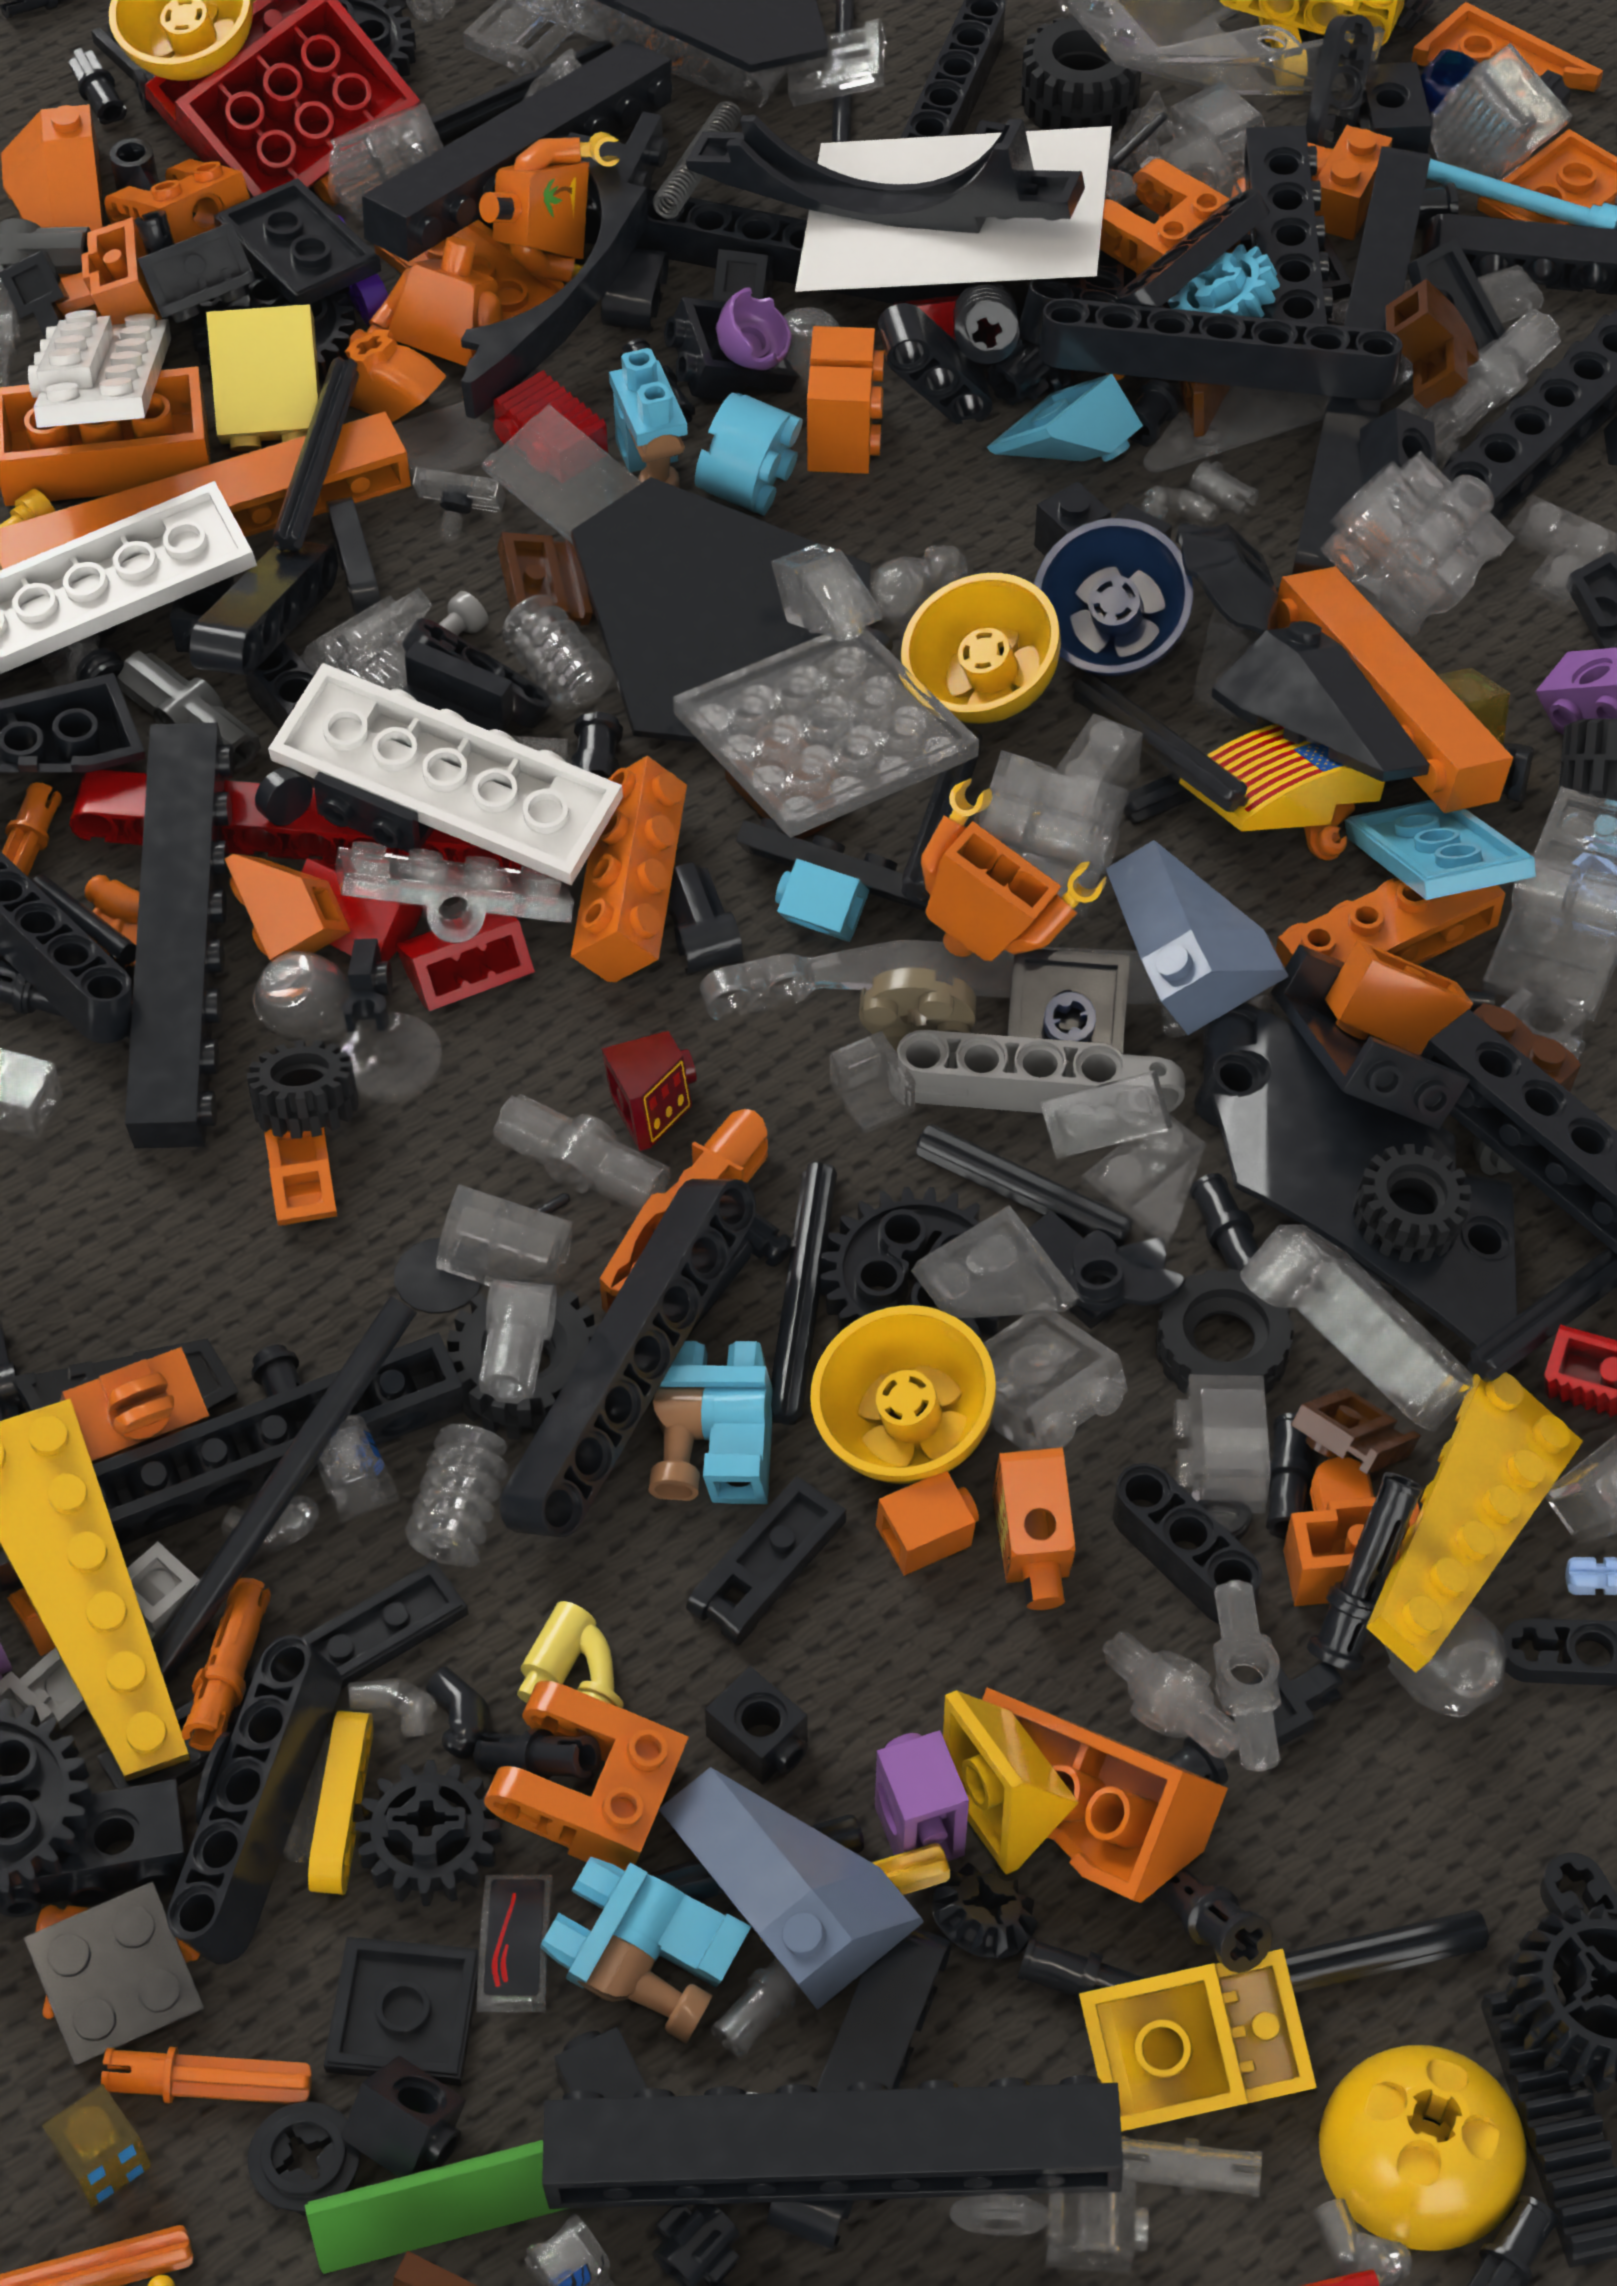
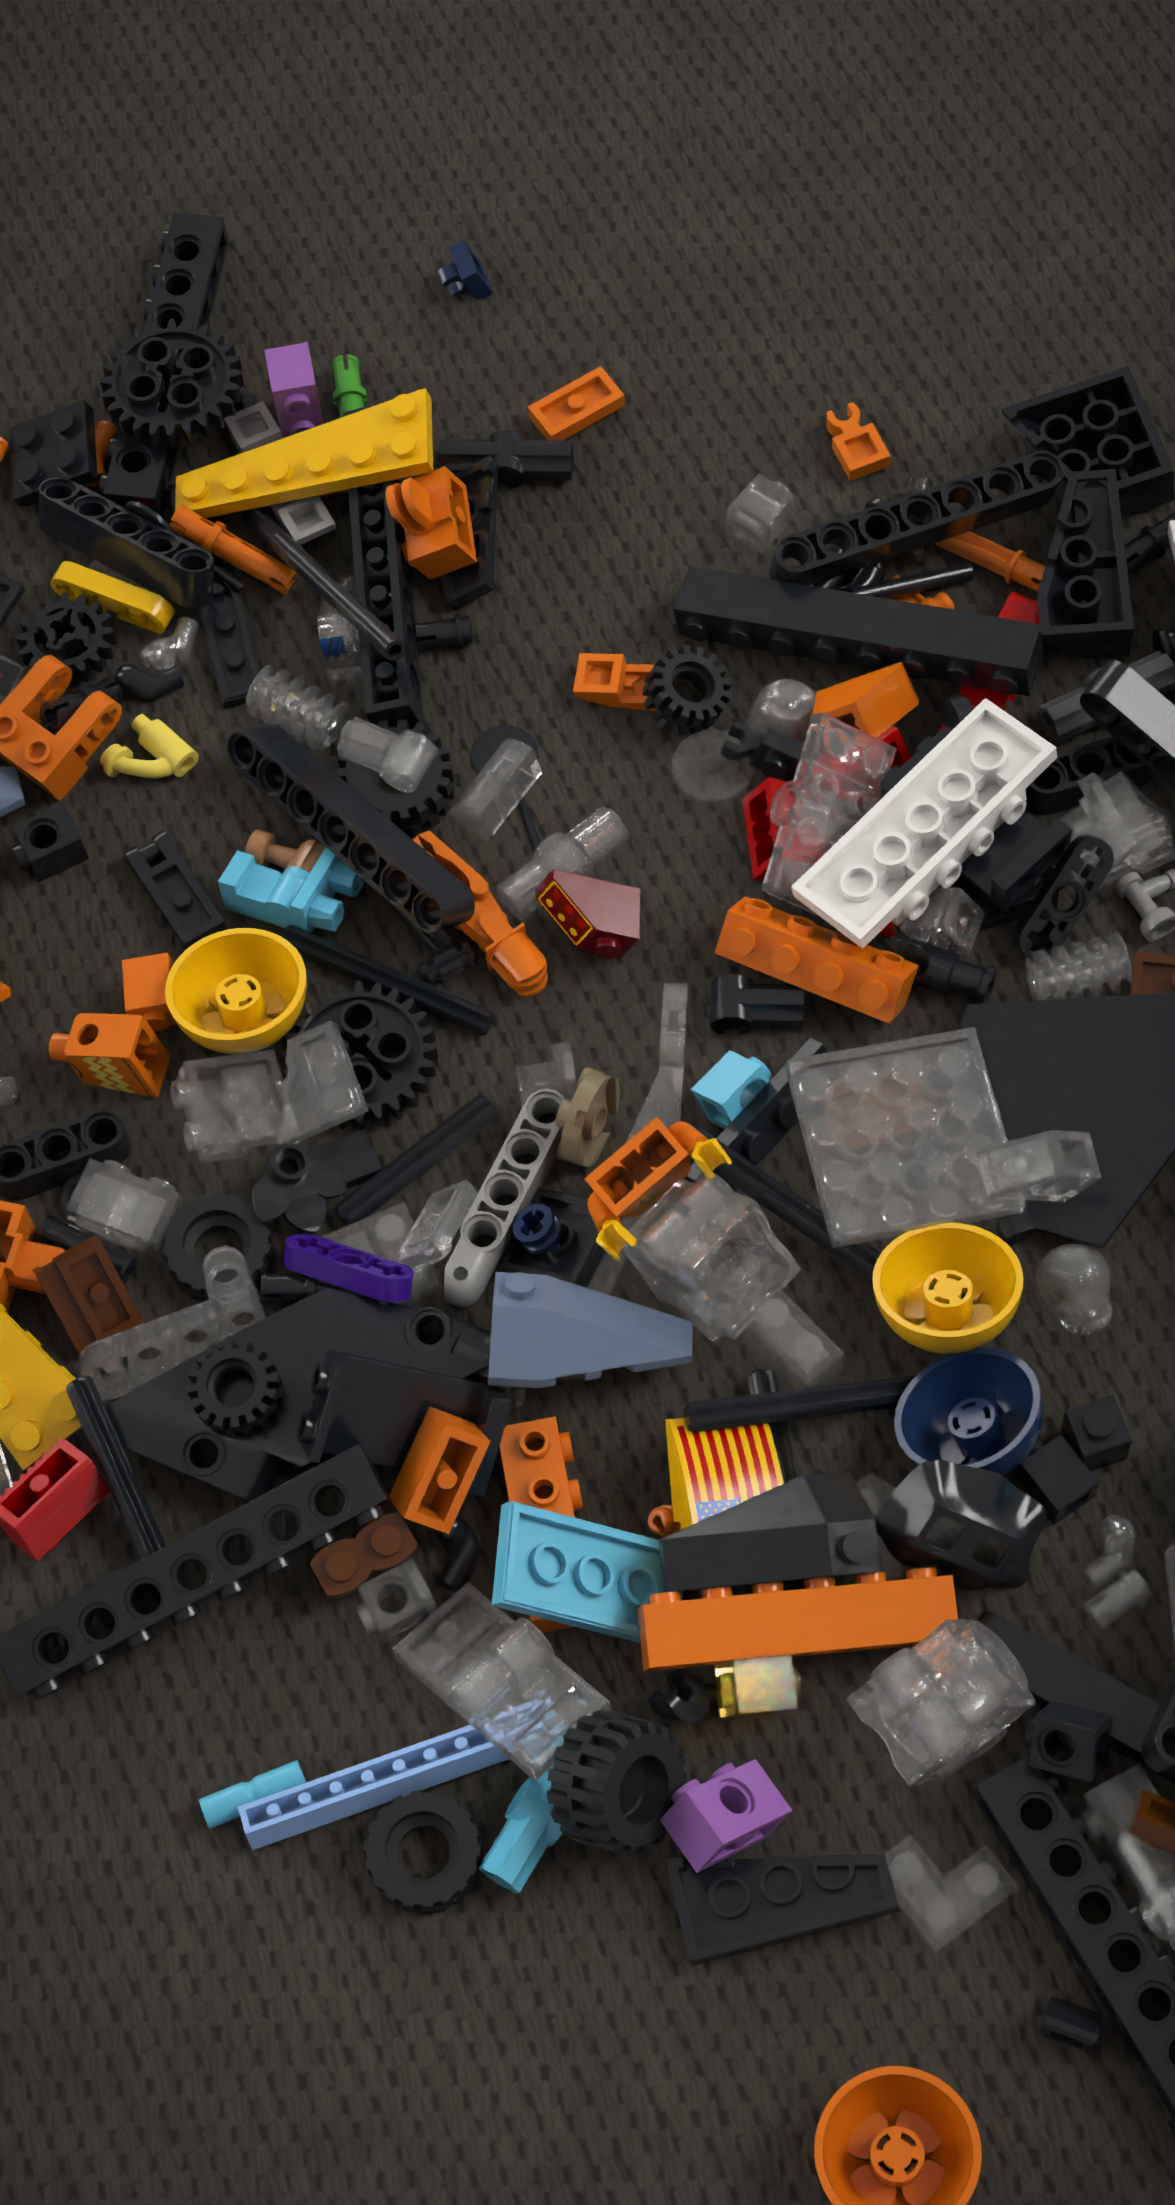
camera: 115 degrees right, 10 degrees up
(1198, 1220) = (348, 1268): none -> dark purple beam

